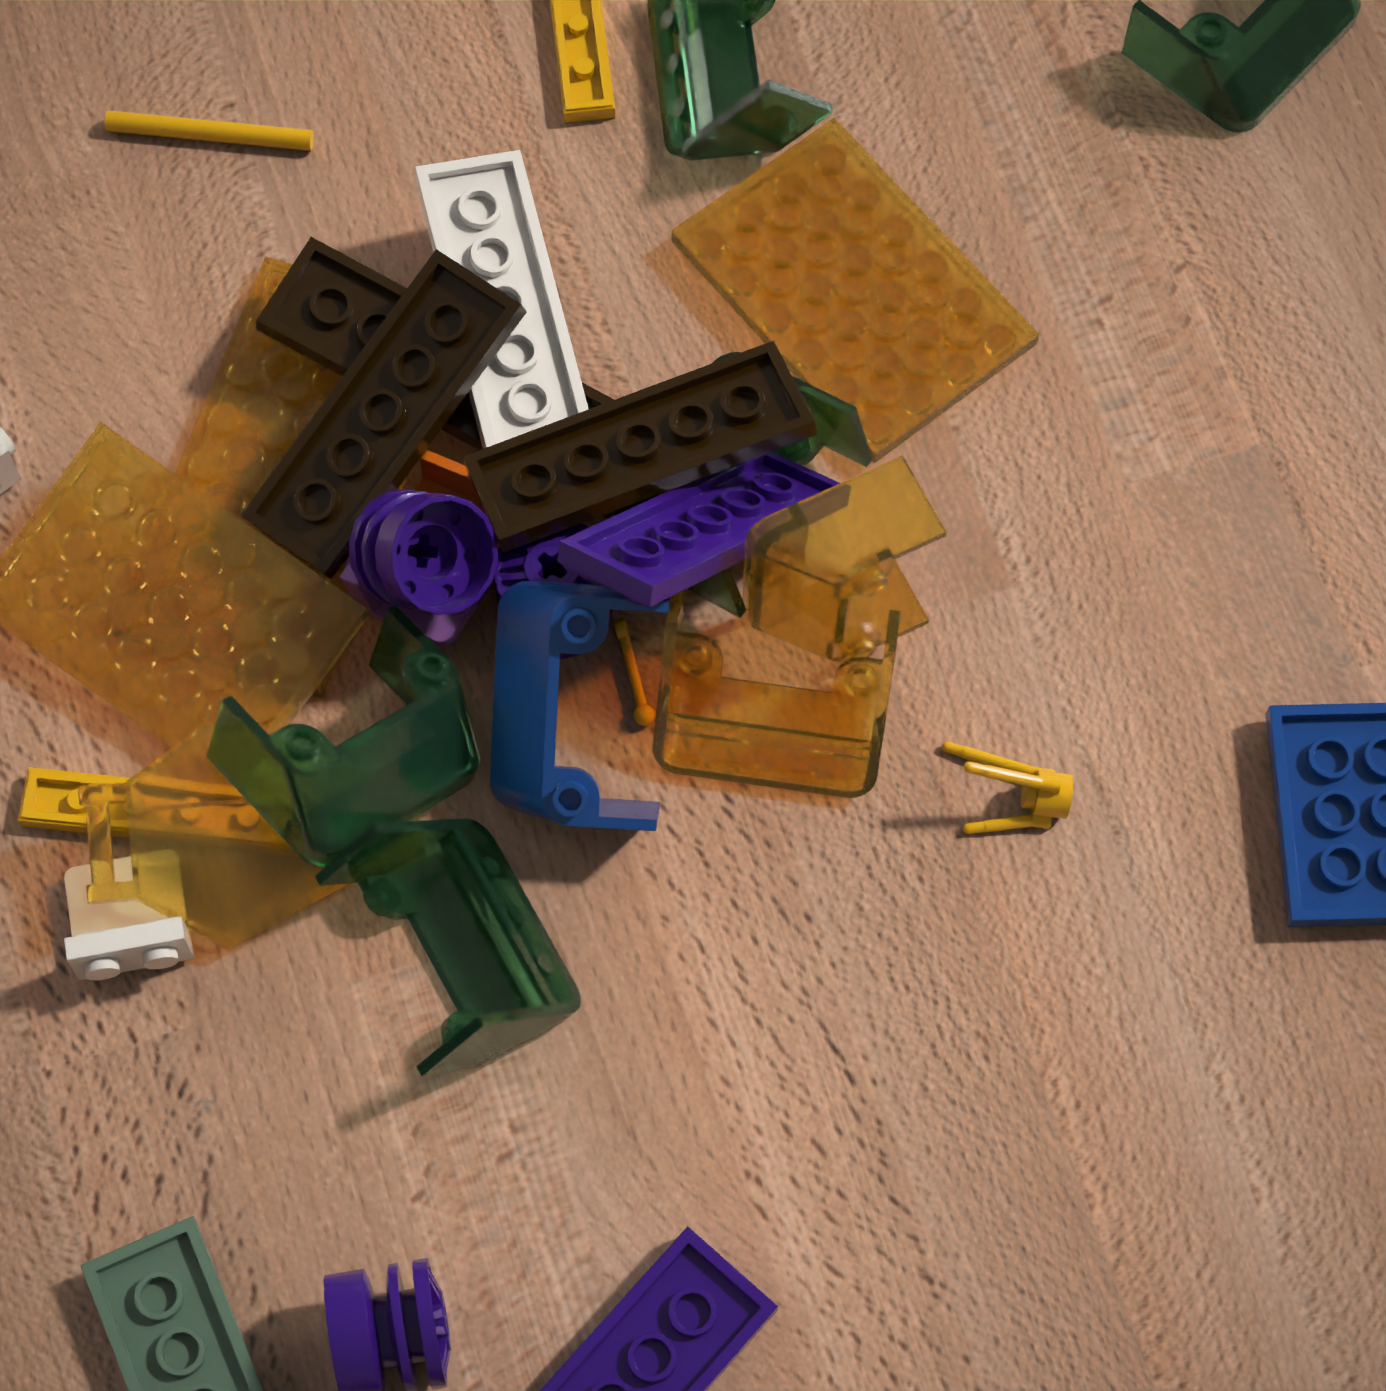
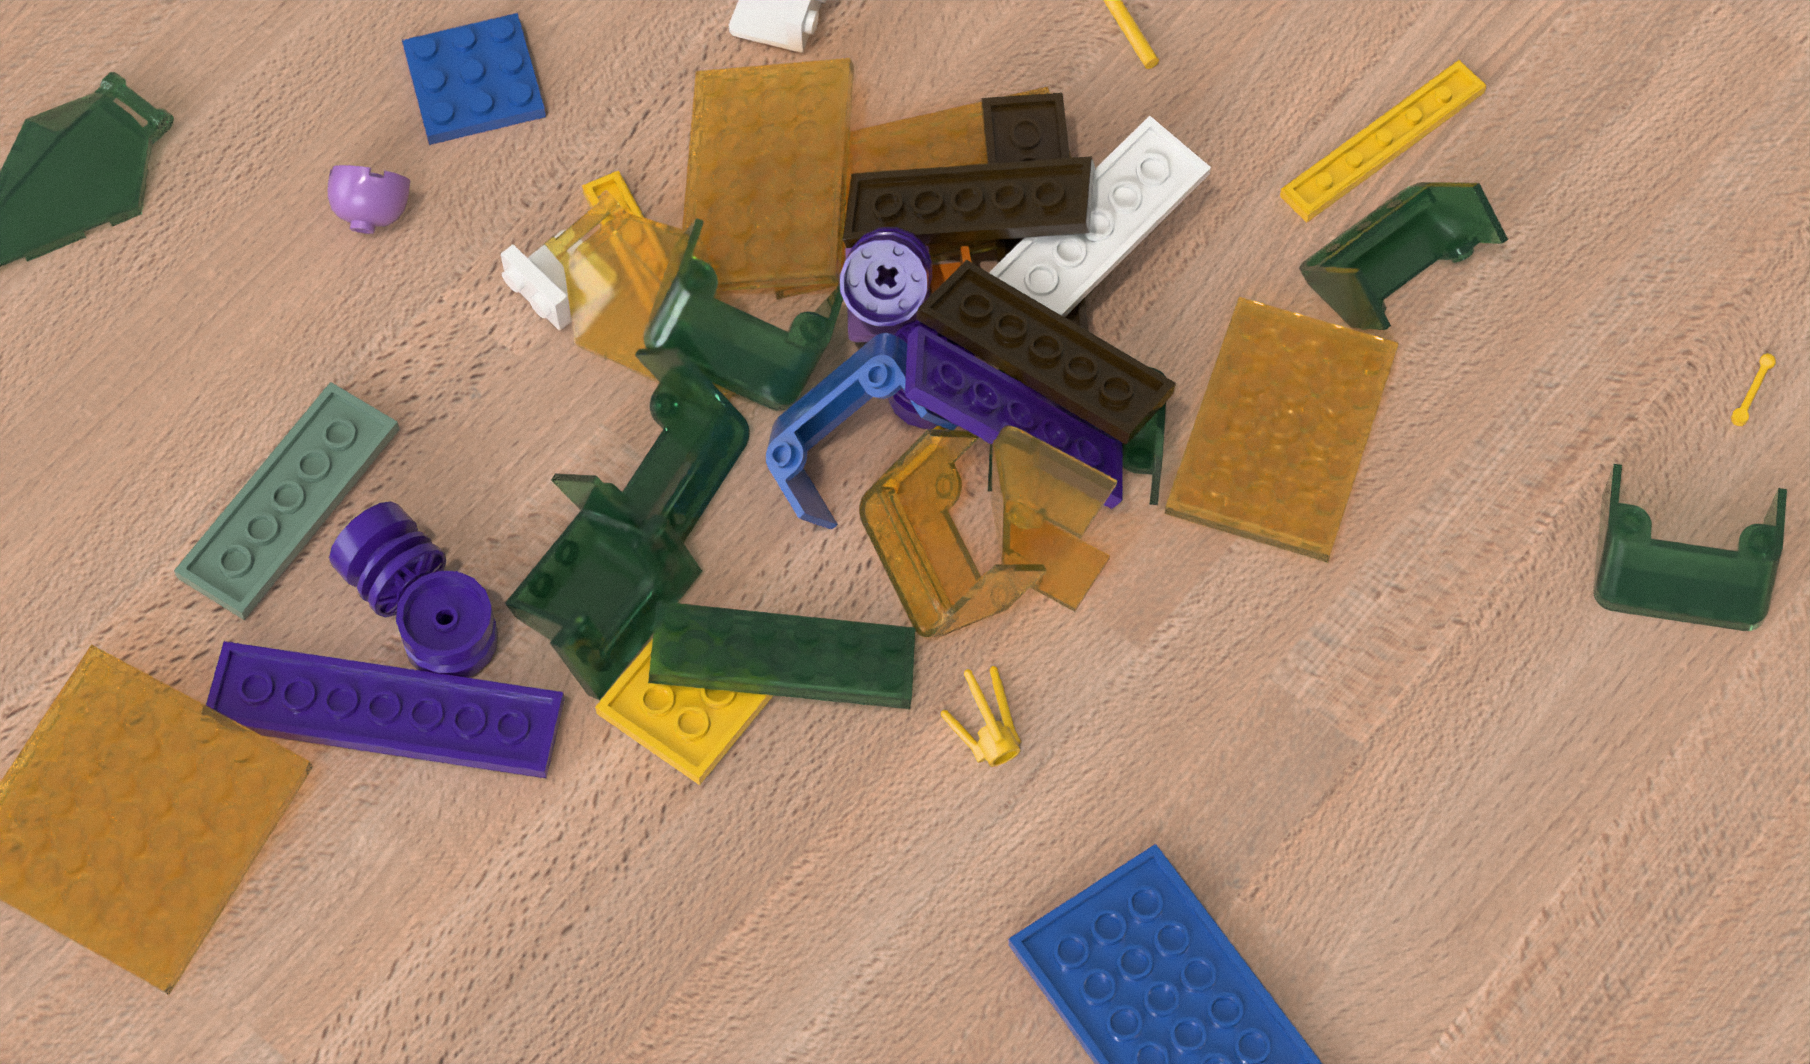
camera: 60 degrees right, 5 degrees down
(502, 1276) = (447, 624): none -> dark purple wheel
(586, 1108) = (601, 591): none -> clear green windscreen
(779, 1090) = (678, 723): none -> yellow plate
(798, 957) = (782, 655): none -> clear green plate

